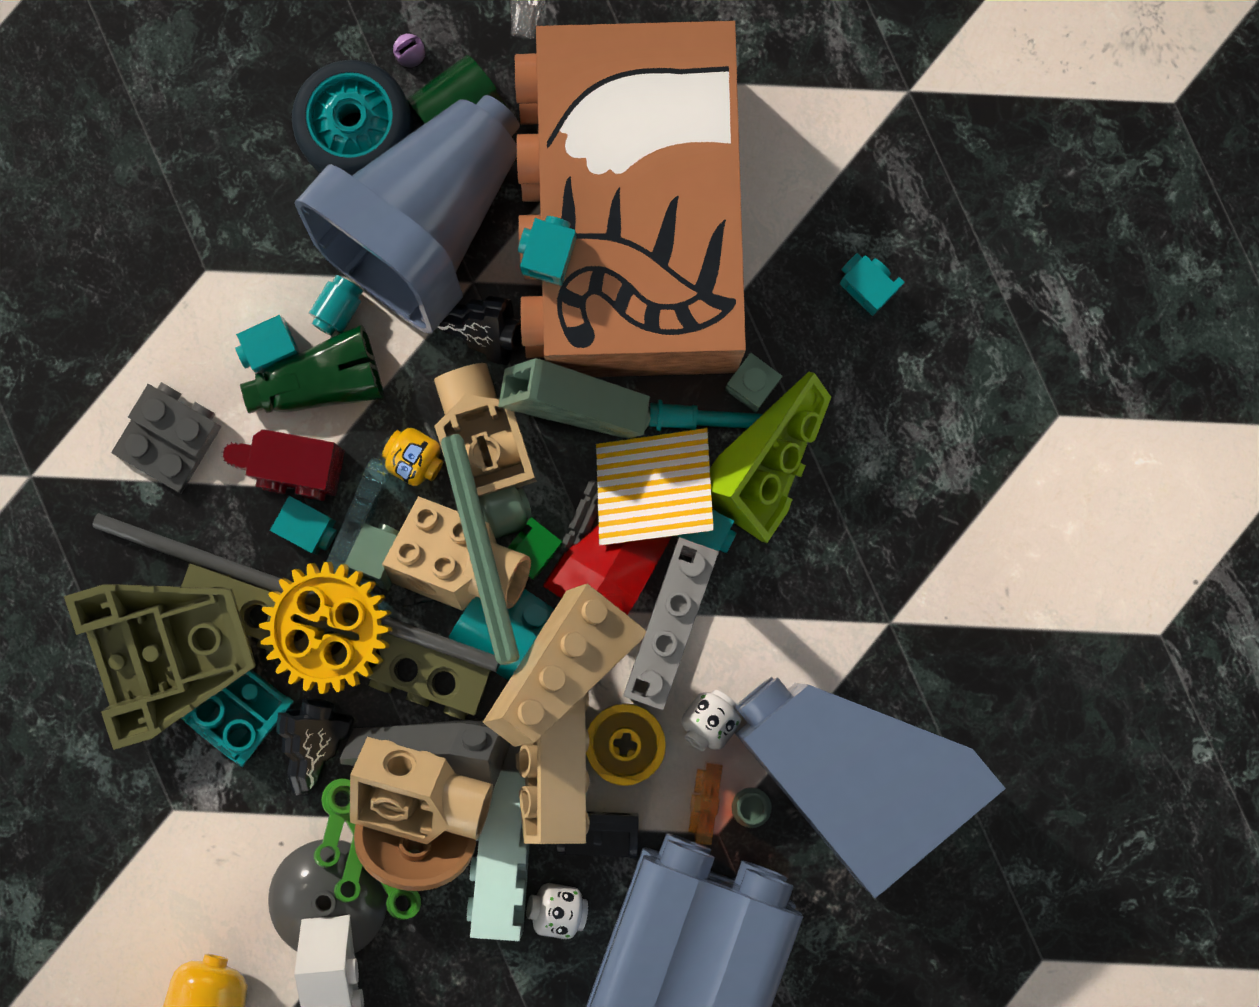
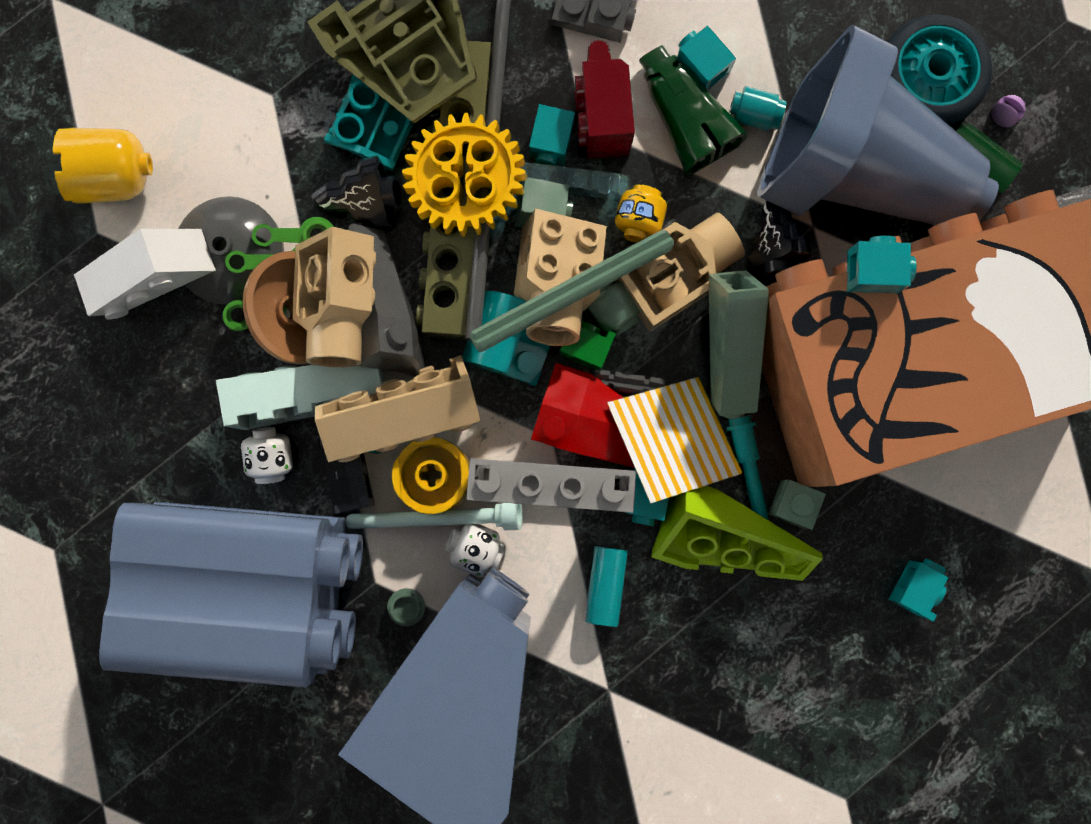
camera: 80 degrees right, 0 degrees up
(564, 662) = (486, 395): tan wedge -> none
(685, 682) = (503, 515): none -> light aqua piece
(706, 805) = (394, 564): clear orange hinge -> none
(784, 597) = (606, 586): none -> teal piece

